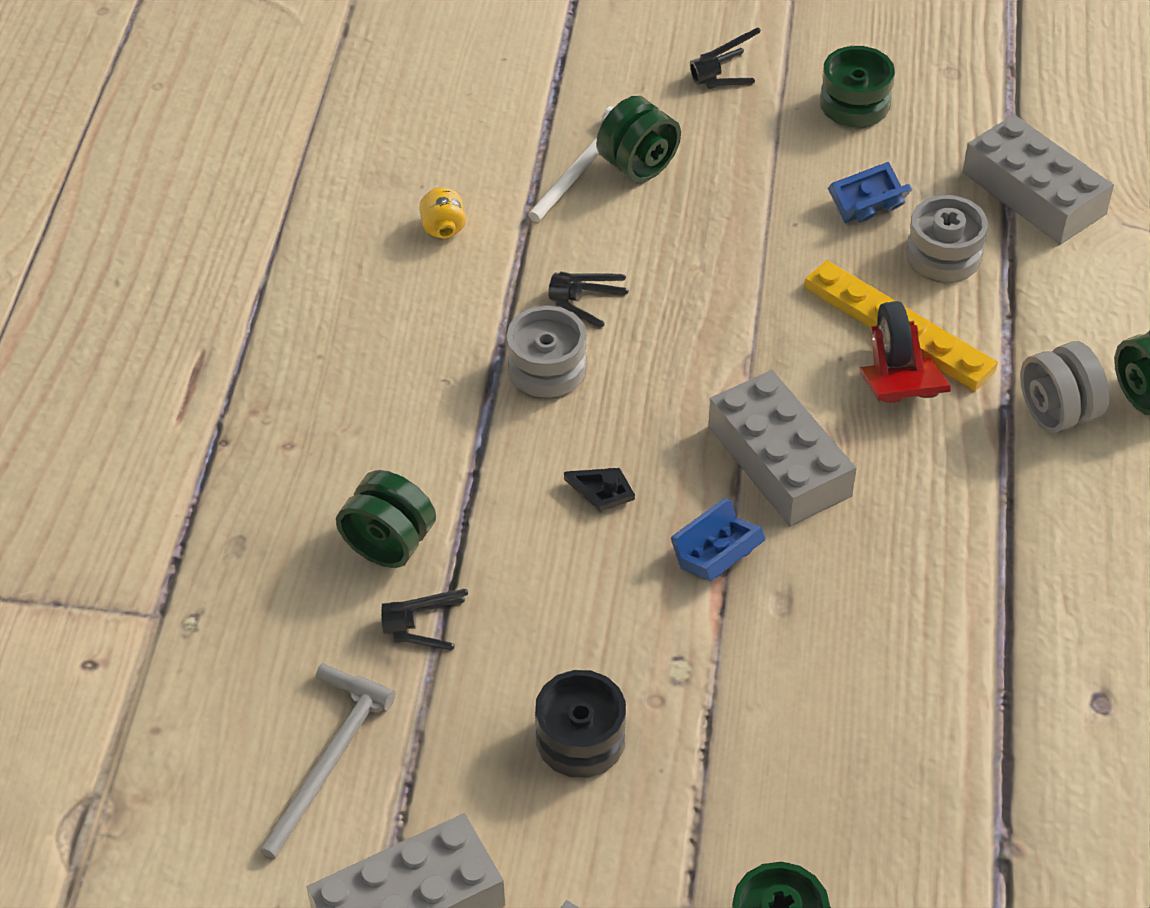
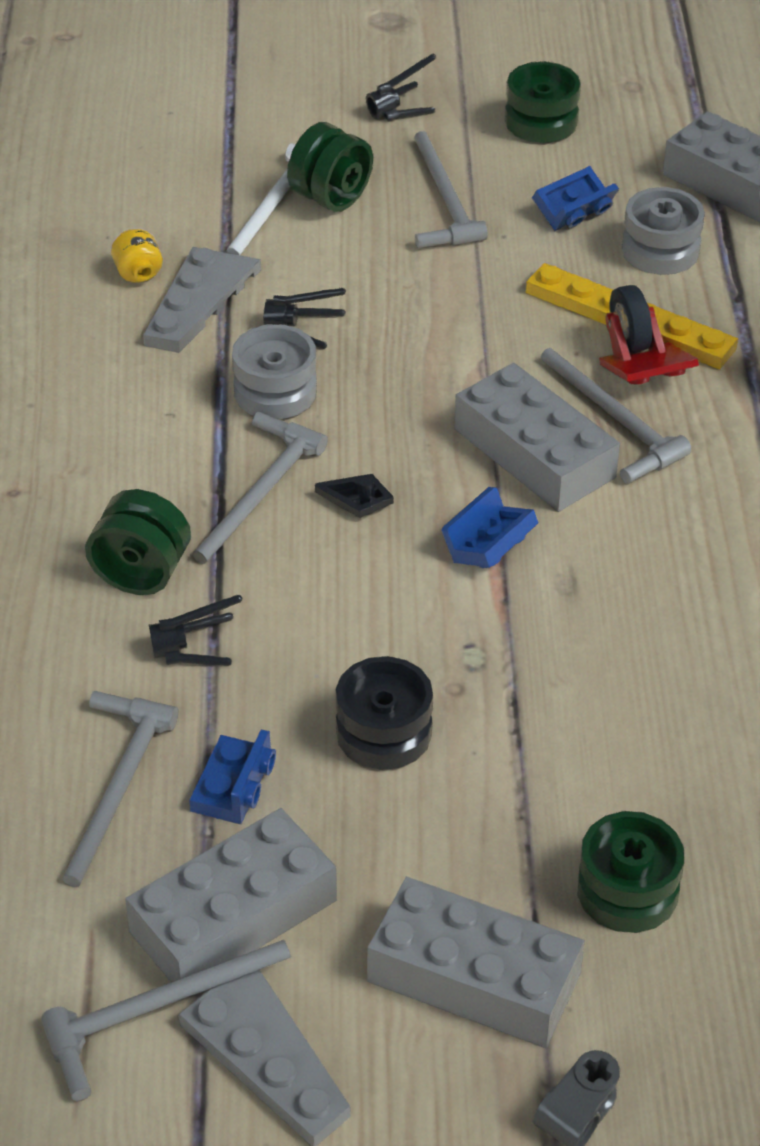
camera: 10 degrees left, 5 degrees down
(431, 768) = (233, 777): none -> blue bracket
(492, 257) = (196, 294): none -> light grey wing
(558, 424) = (298, 442): none -> light grey bar
(757, 214) = (463, 229): none -> light grey bar
(901, 474) = (662, 450): none -> light grey bar

